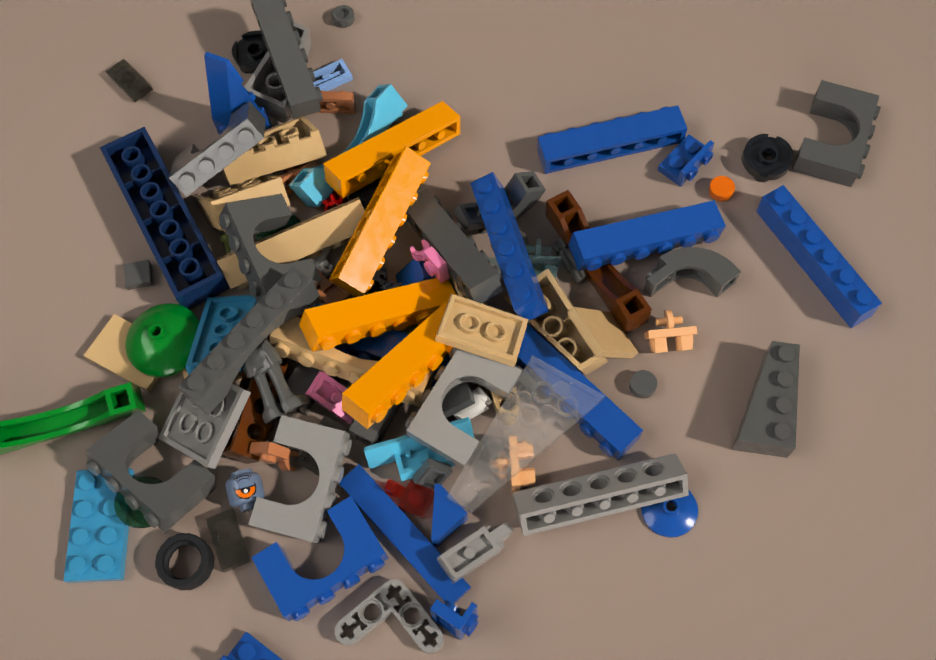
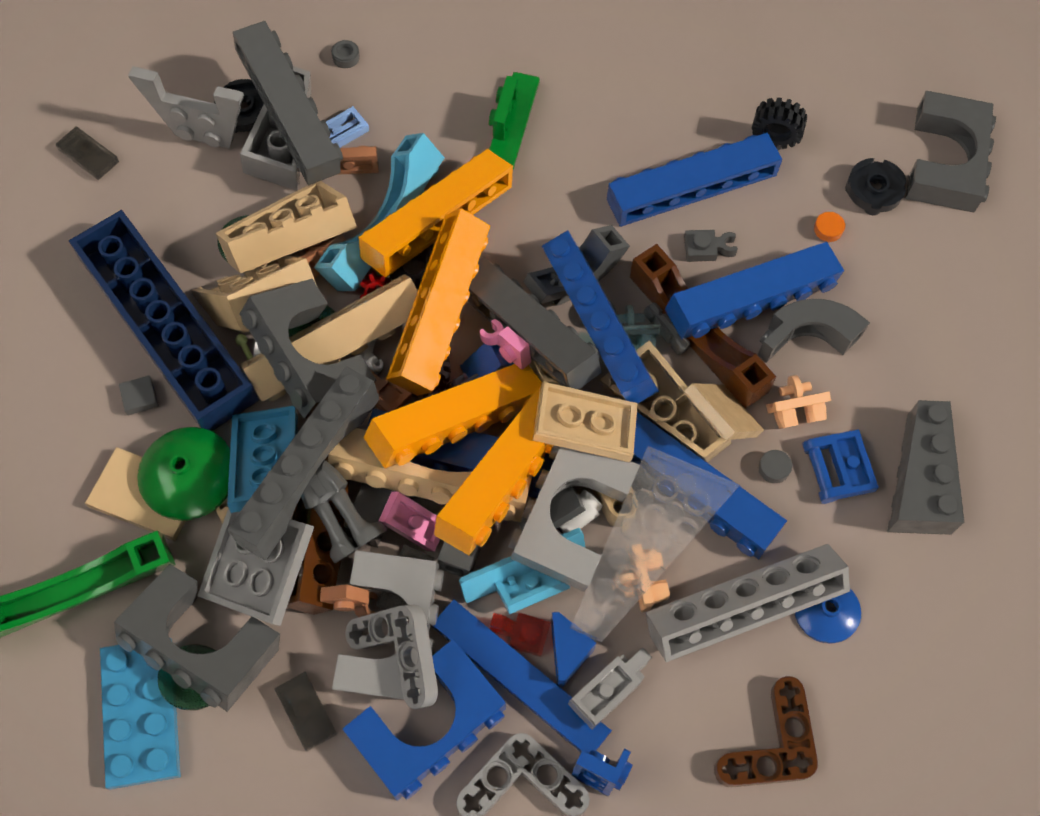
camera: 15 degrees left, 0 degrees up
(169, 547) = (235, 728): black tyre -> none
(196, 48) = (188, 116): none -> light grey wing
(196, 167) = (195, 258): arch -> none
(227, 92) = (230, 174): blue wedge -> none
(244, 489) = (318, 646): sand blue head -> none
(313, 488) = (399, 633): none -> light grey beam
(432, 473) = (545, 600): dark grey tile -> none
(468, 75) = (512, 114): none -> green bracket
(612, 195) = (704, 246): none -> dark grey plate
(618, 618) = (788, 745): none -> reddish brown beam
(685, 160) = (783, 195): blue bracket -> none
(691, 97) = (781, 120): none -> black tyre
(707, 389) = (849, 462): none -> blue plate
(818, 257) = (952, 296): blue brick -> none

